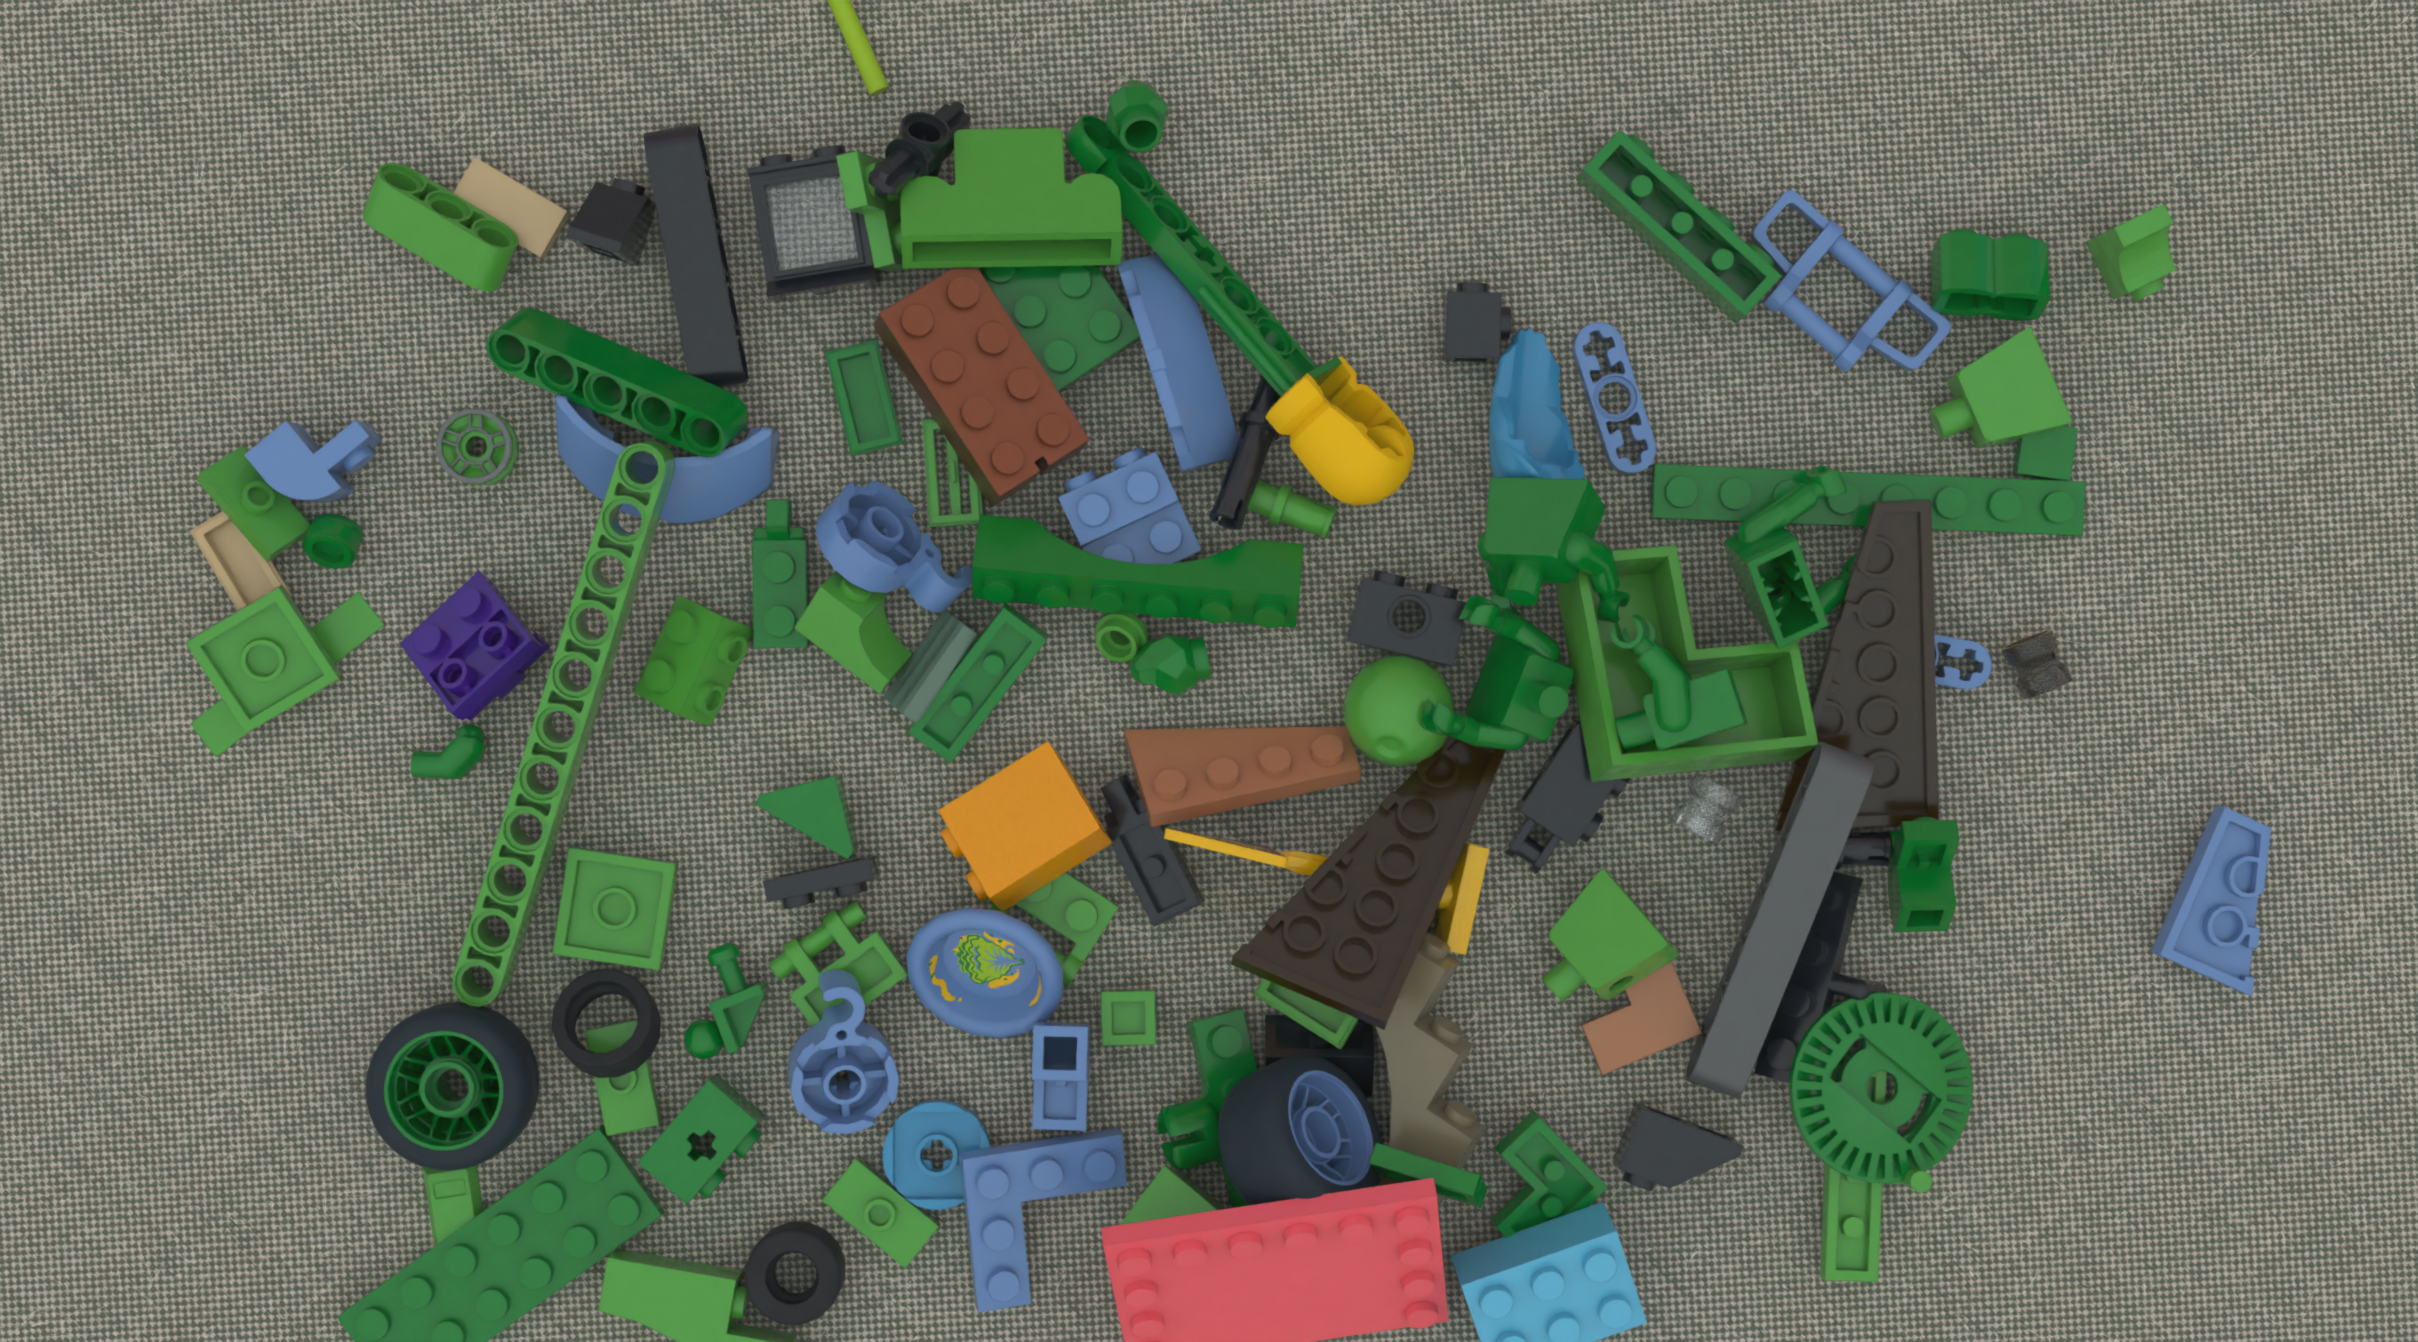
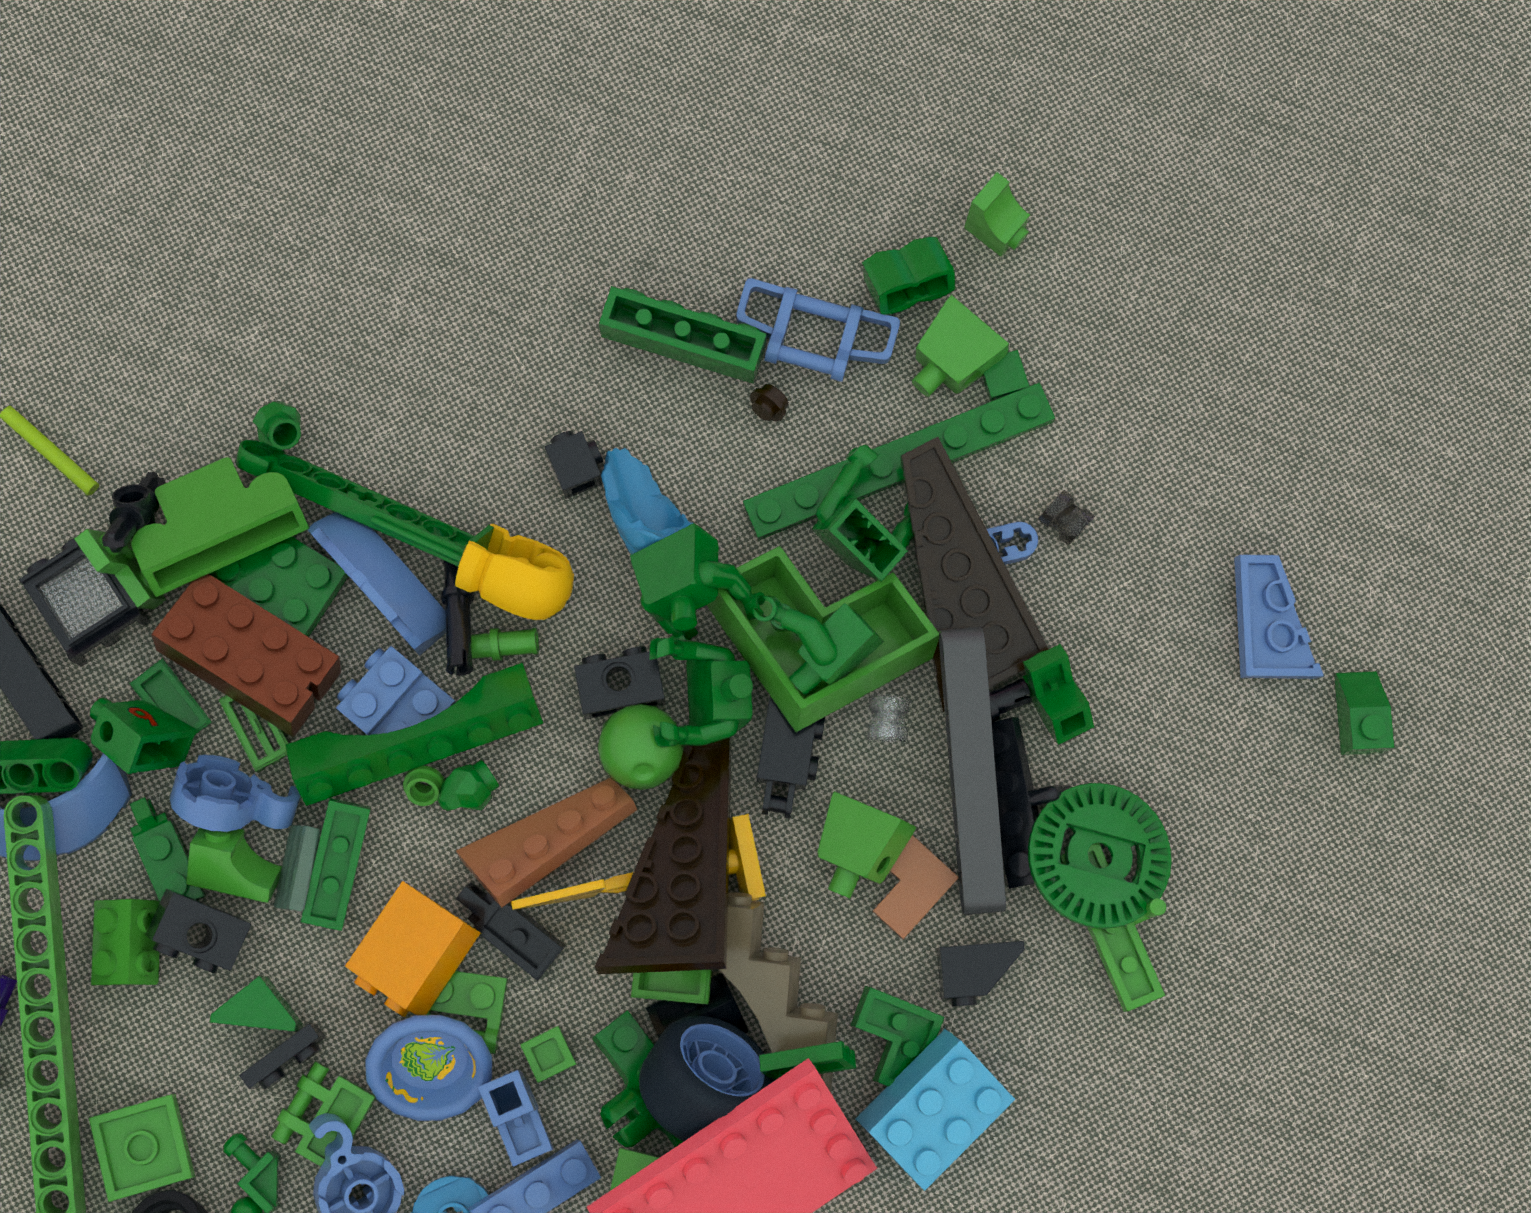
camera: 30 degrees left, 10 degrees down
(772, 661) = (223, 932): none -> black brick
(812, 425) = (139, 735): none -> green torso
(1590, 364) = (682, 441): medium blue beam -> none
(1743, 357) = (769, 403): none -> dark brown plate
(2277, 1061) = (1363, 714): none -> green slope

